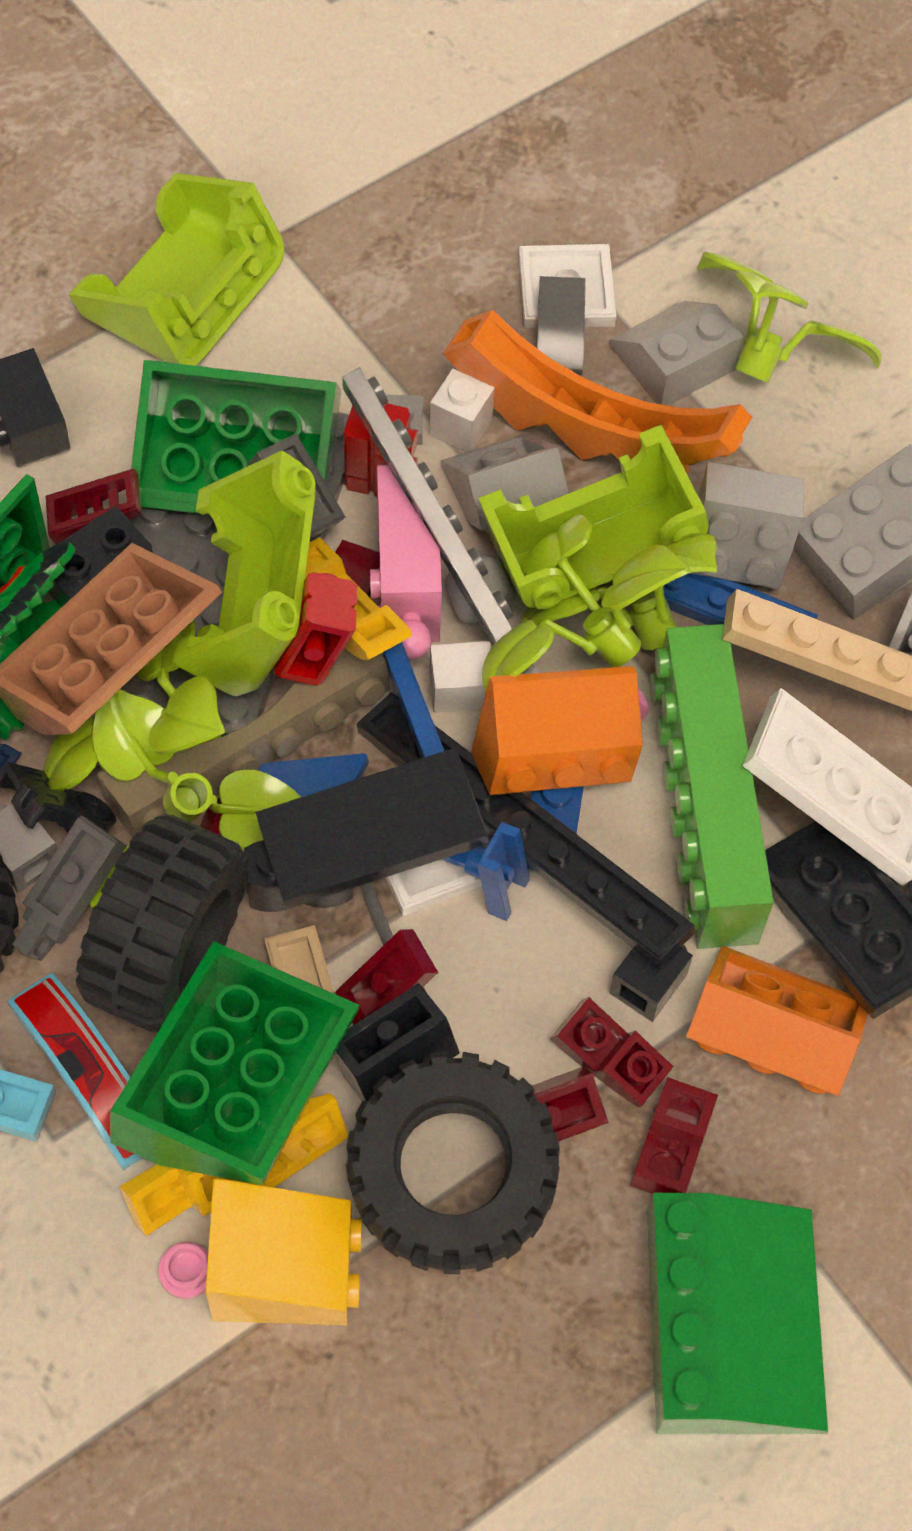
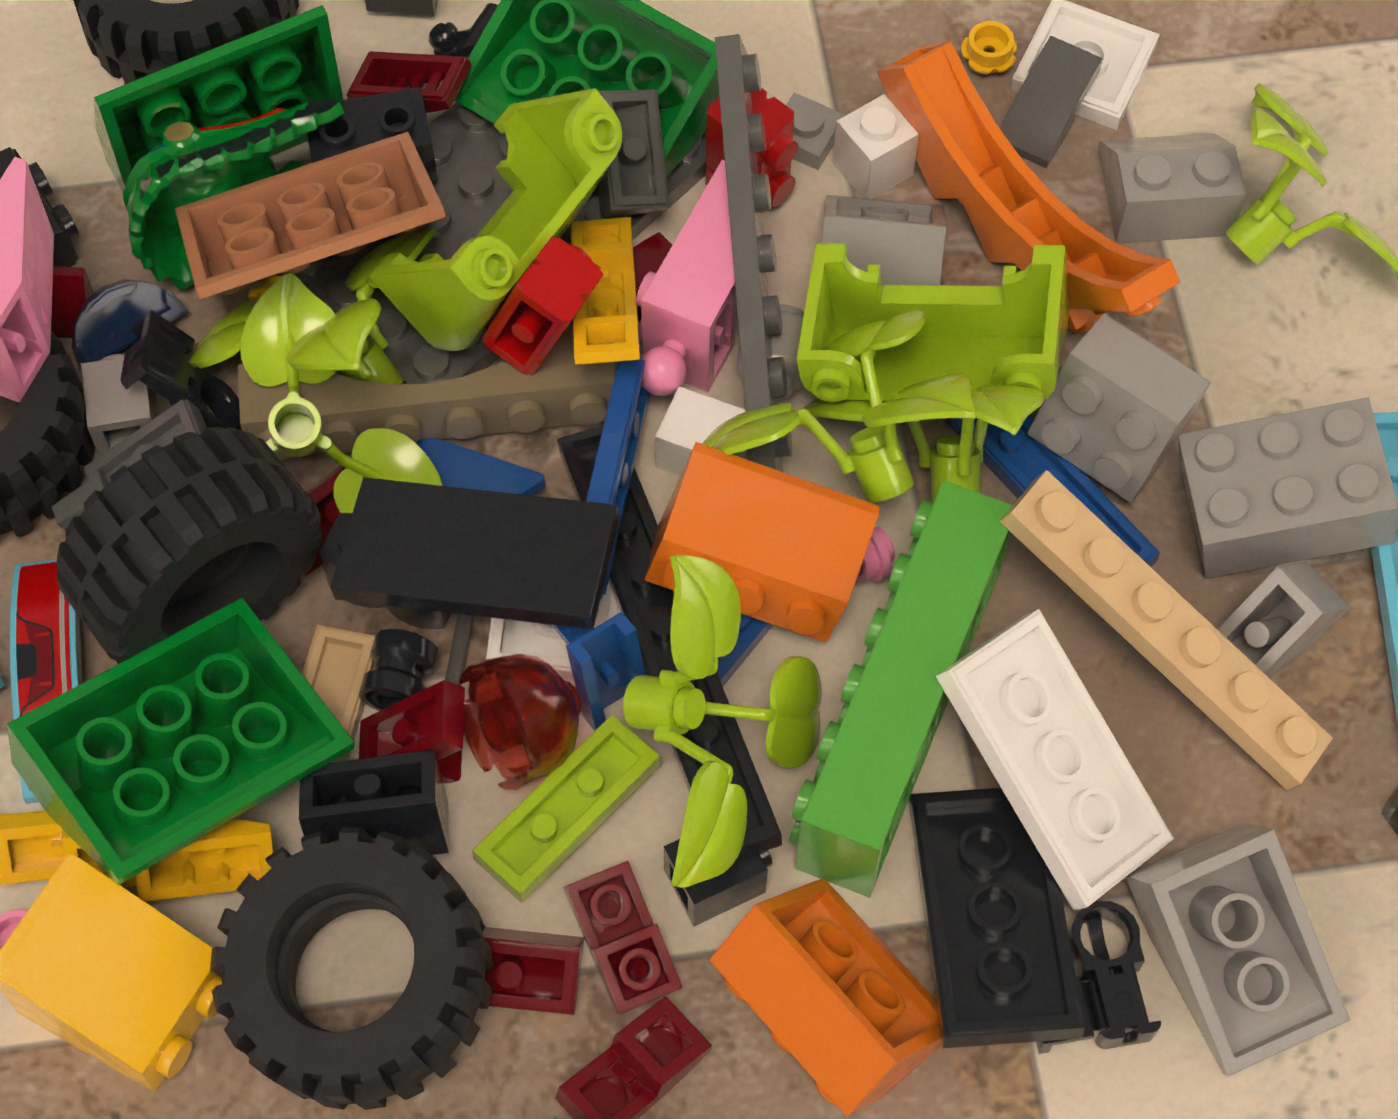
camera: 30 degrees right, 0 degrees up
(113, 456) = (451, 42): none -> black arm
(345, 941) = (398, 668): none -> black wheel
(459, 932) = (520, 717): none -> clear red cylinder
(497, 294) = (990, 37): none -> yellow plate
(522, 982) = (566, 808): none -> lime plate
(572, 871) = (701, 629): none -> lime plant

